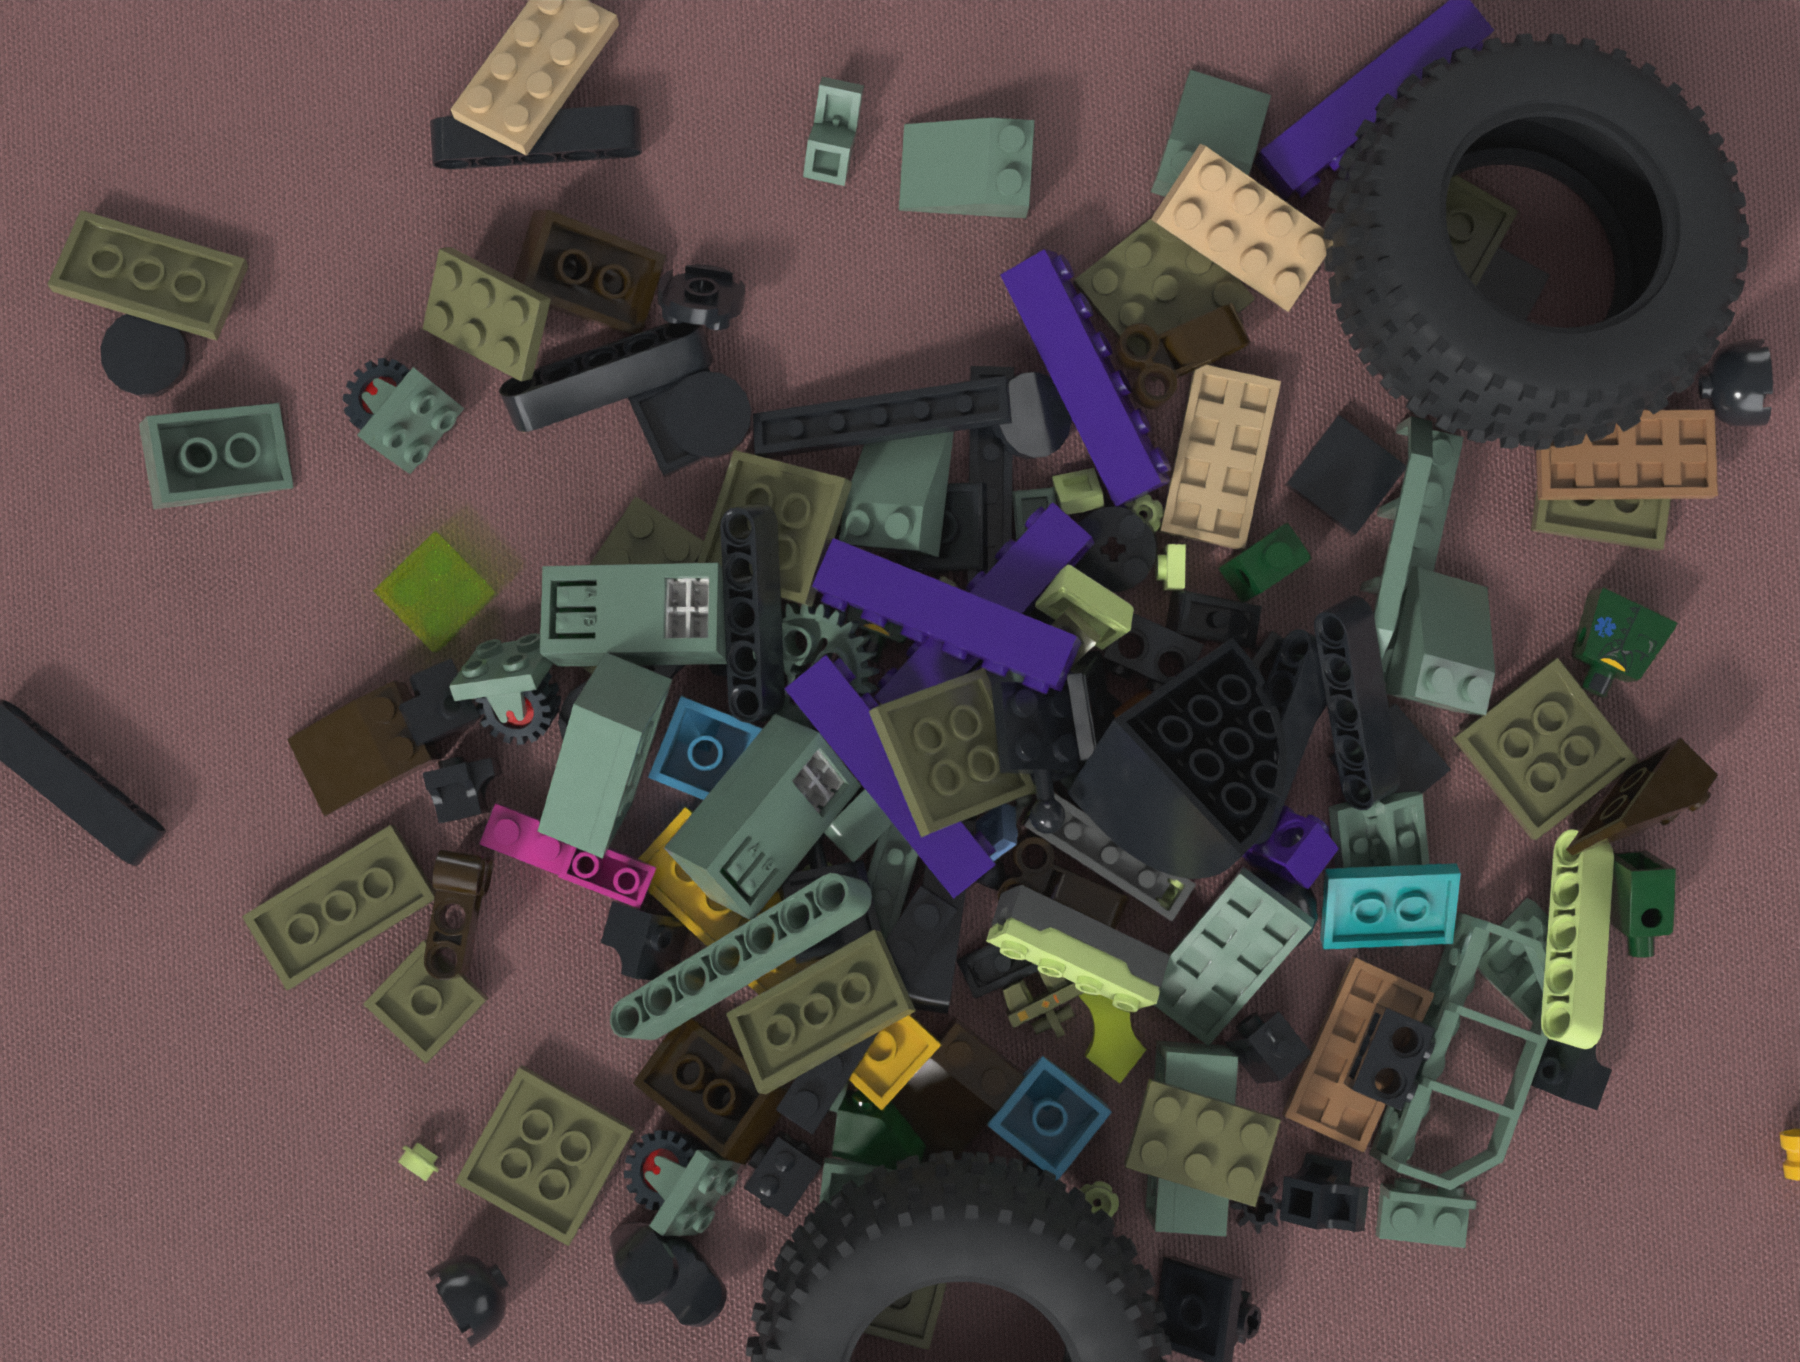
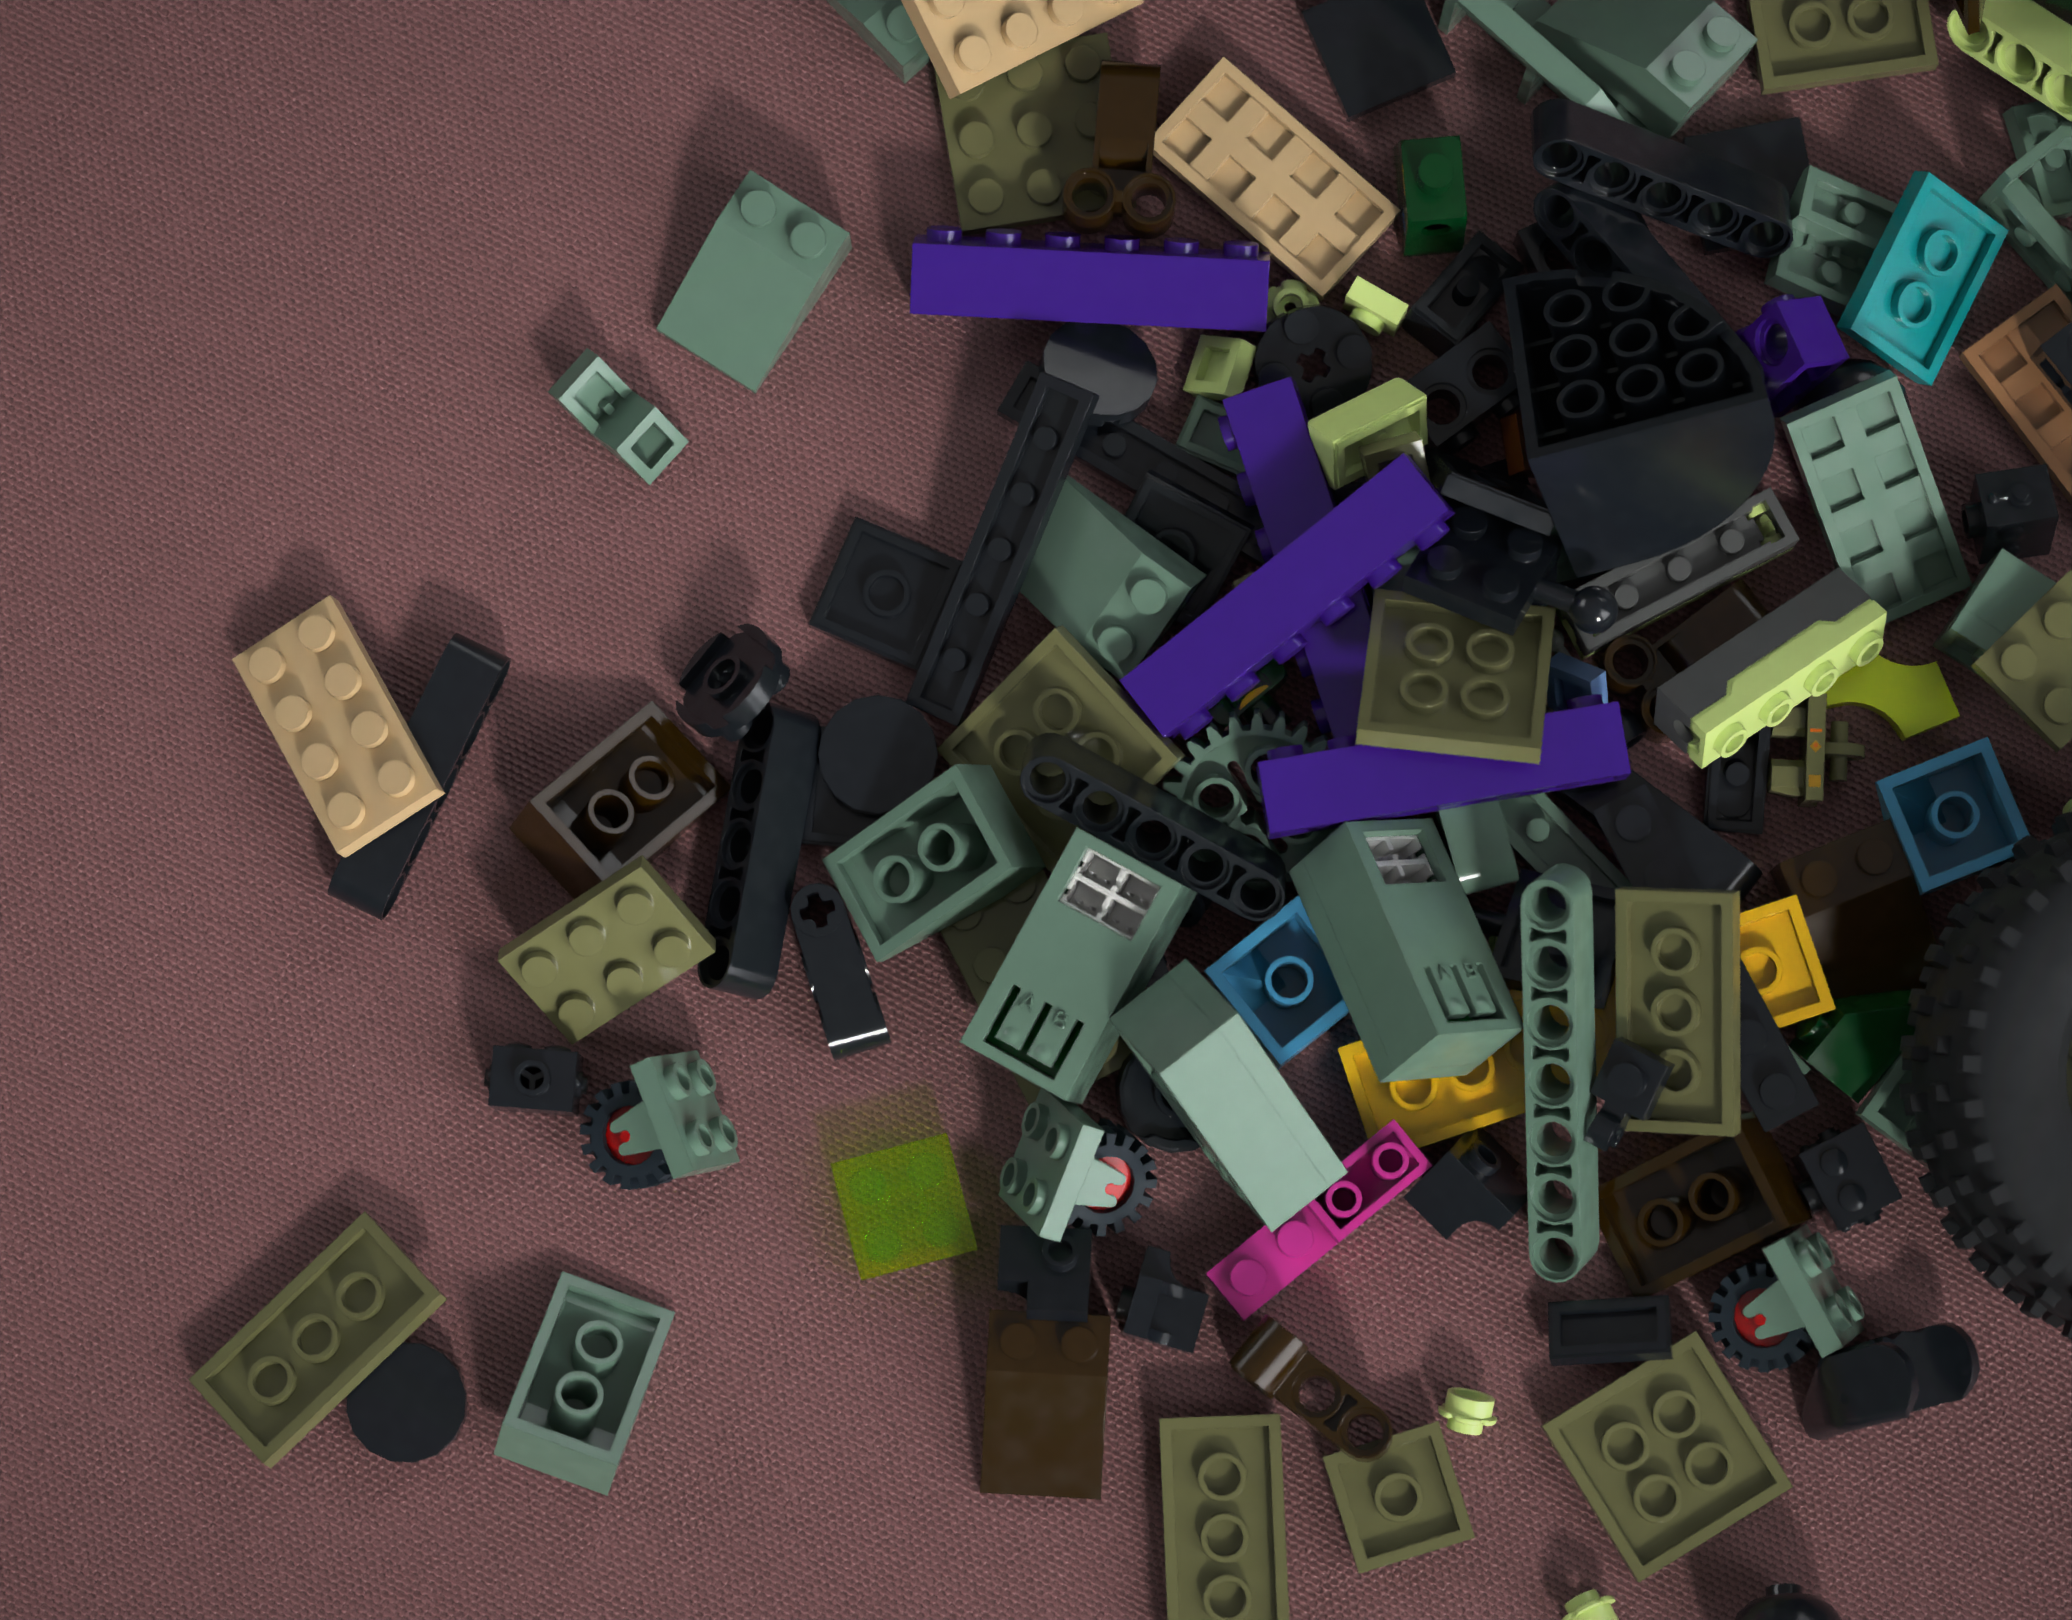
camera: 55 degrees left, 5 degrees down
(395, 329) = (561, 1087): none -> black head
(505, 1014) = (1467, 1410): none -> yellowish green plate
(557, 468) = (838, 976): none -> black piece
(603, 1076) = (1610, 1330): none -> black tile
(659, 487) = (933, 860): none -> sand green slope
(755, 1007) = (1630, 1085): none -> black plate
(816, 362) = (885, 594): none -> black tile

